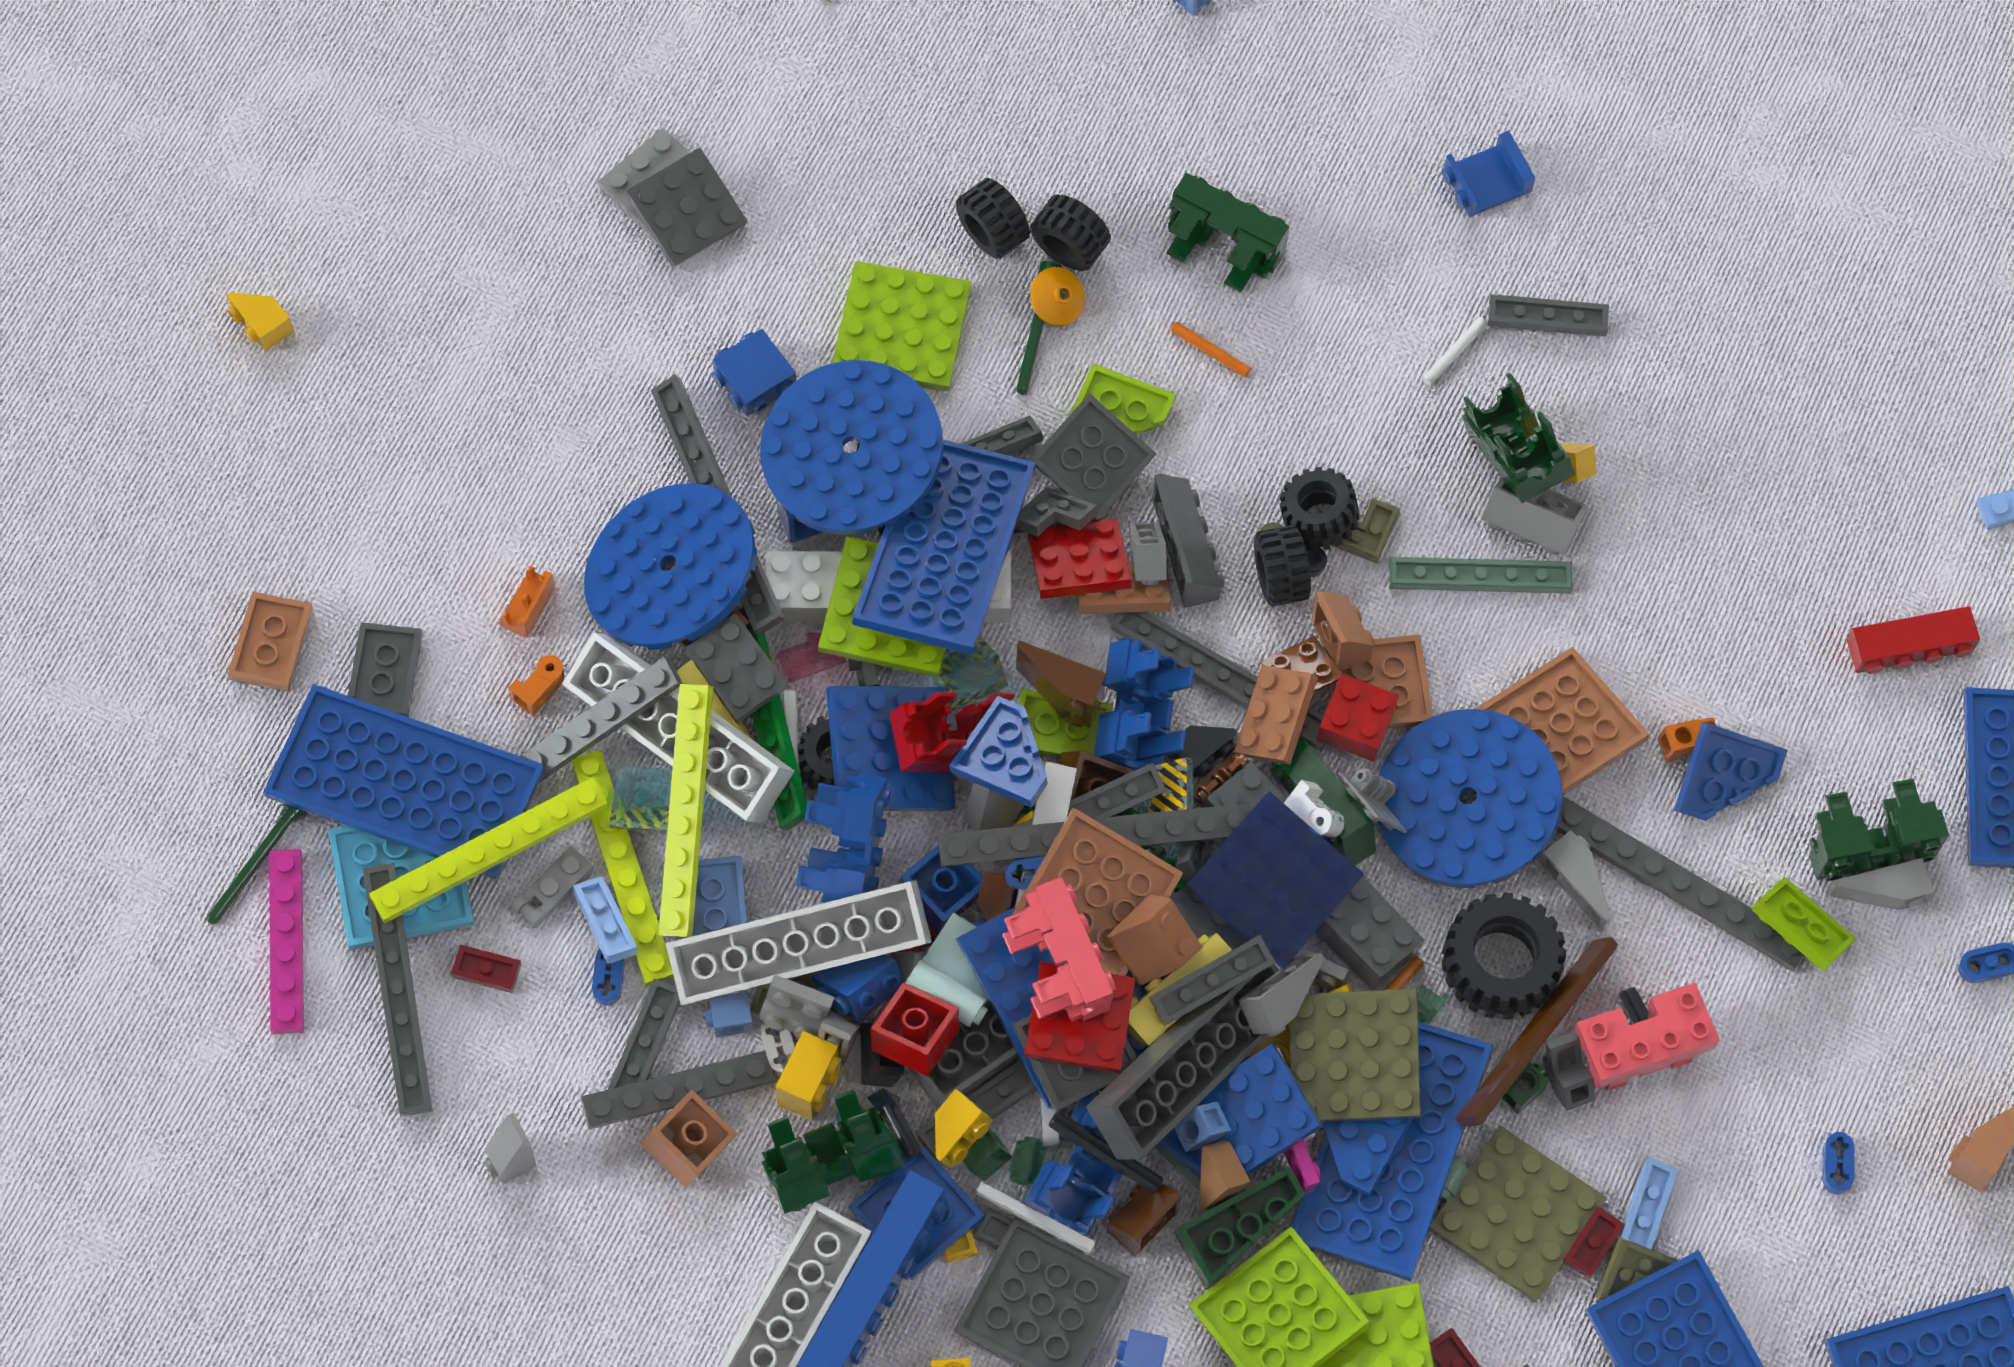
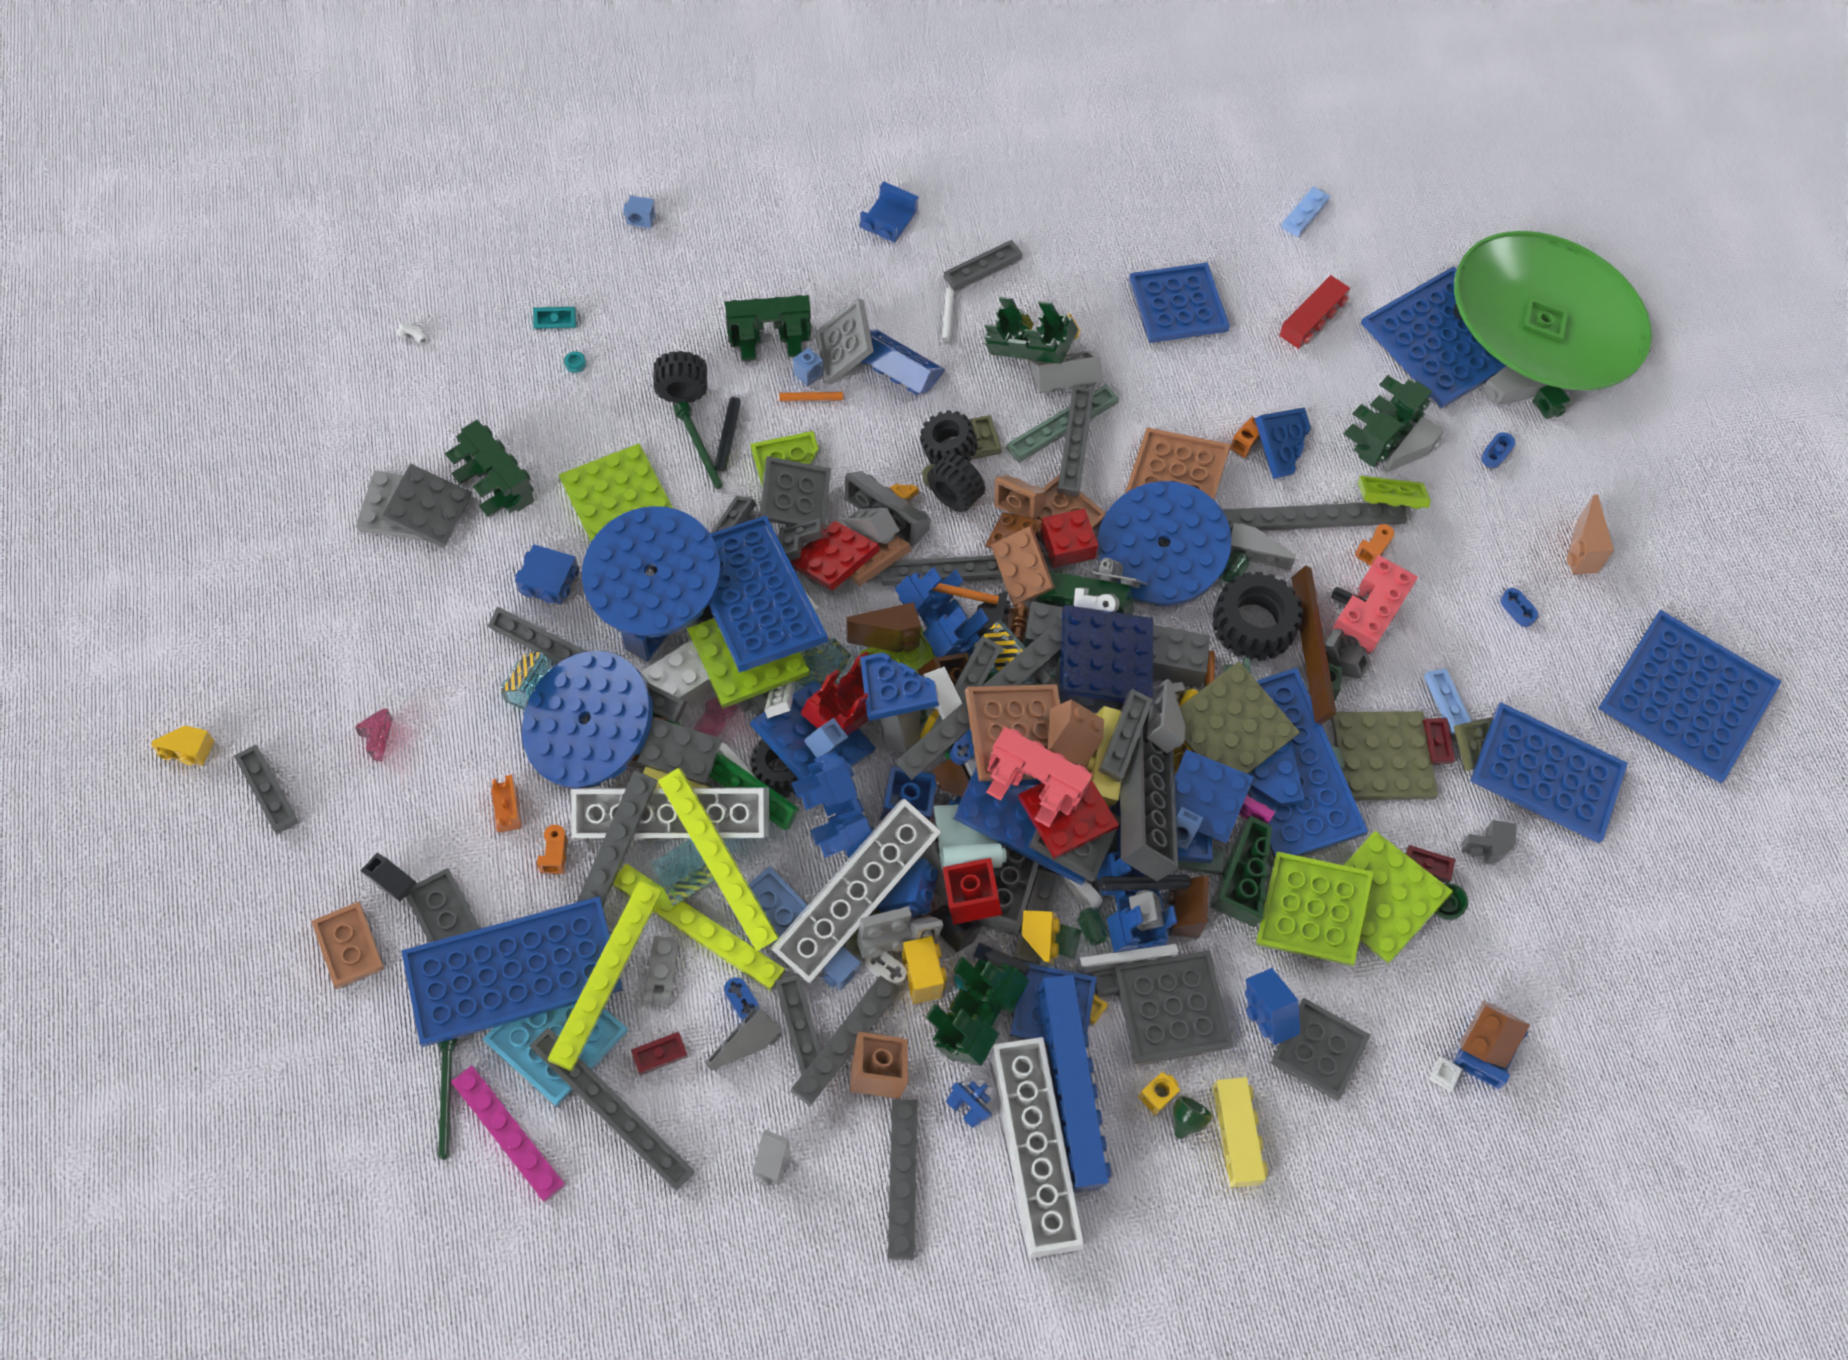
camera: 40 degrees left, 5 degrees down
(306, 420) = (266, 789): none -> dark grey plate
(355, 598) = (388, 877): none -> black slope
(459, 429) = (376, 730): none -> clear pink slope
(584, 1017) = (748, 1037): none -> dark grey slope
(605, 919) = (714, 966): light blue plate -> none
(627, 1268) = (902, 1180): none -> dark grey plate
(643, 476) = (524, 679): none -> clear light blue slope
(758, 1244) = (962, 1095): none -> blue hips
(787, 193) = (488, 457): none -> dark green piece
(881, 683) = (780, 700): none -> white tile
(890, 759) = (825, 738): none -> medium blue brick
(976, 134) = (575, 362): none -> teal tile
(993, 218) = (627, 396): black tyre -> none
(995, 63) = (554, 317): none -> teal slope
(1046, 298) = (698, 420): light orange dish -> none
(1079, 334) = (727, 434): none -> black axle
(1087, 1182) = (1150, 909): none -> light grey brick
(1185, 702) = (966, 593): none -> orange bar
(1220, 1175) = (1217, 849): medium nougat slope -> none
(1224, 536) = (905, 491): none -> light orange tile
(1232, 311) = (808, 366): none -> medium blue brick
(1293, 308) = (844, 341): none -> light grey plate
(1344, 370) = (902, 363): none -> slope
(1468, 607) = (1075, 441): none -> dark grey plate
(1532, 882) = (1237, 565): none -> clear green brick
(1727, 973) = (1378, 544): none -> orange leg
(1751, 517) = (1178, 302): none -> blue plate

